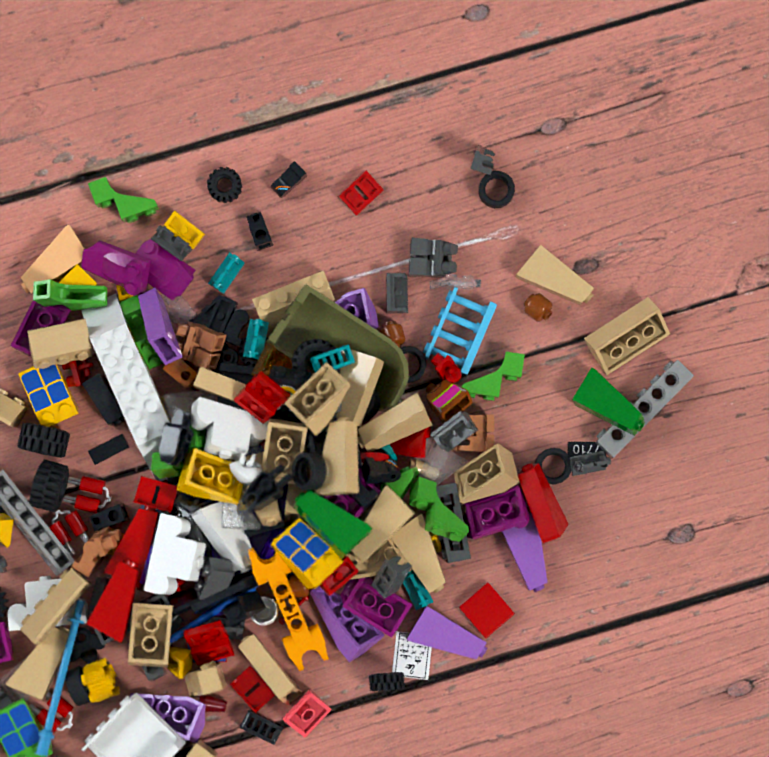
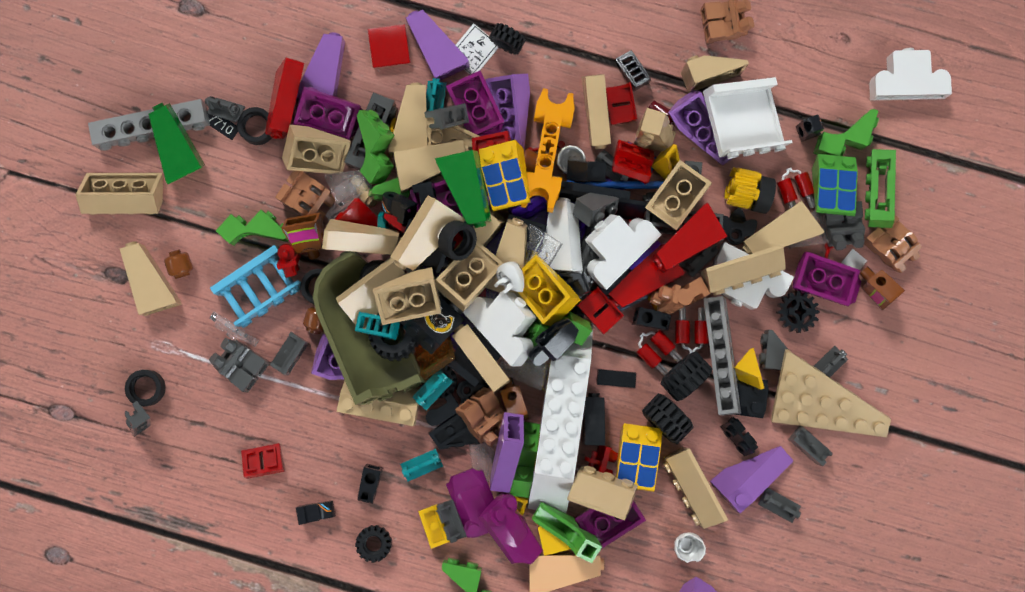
camera: 150 degrees left, 0 degrees up
(47, 734) = (815, 168): dark azure bar -> none
(261, 397) = (457, 332): red slope -> none
(265, 489) = (503, 249): black hinge -> none
(307, 713) = (589, 58): coral slope -> none
(454, 431) = (315, 202): dark grey hinge -> none

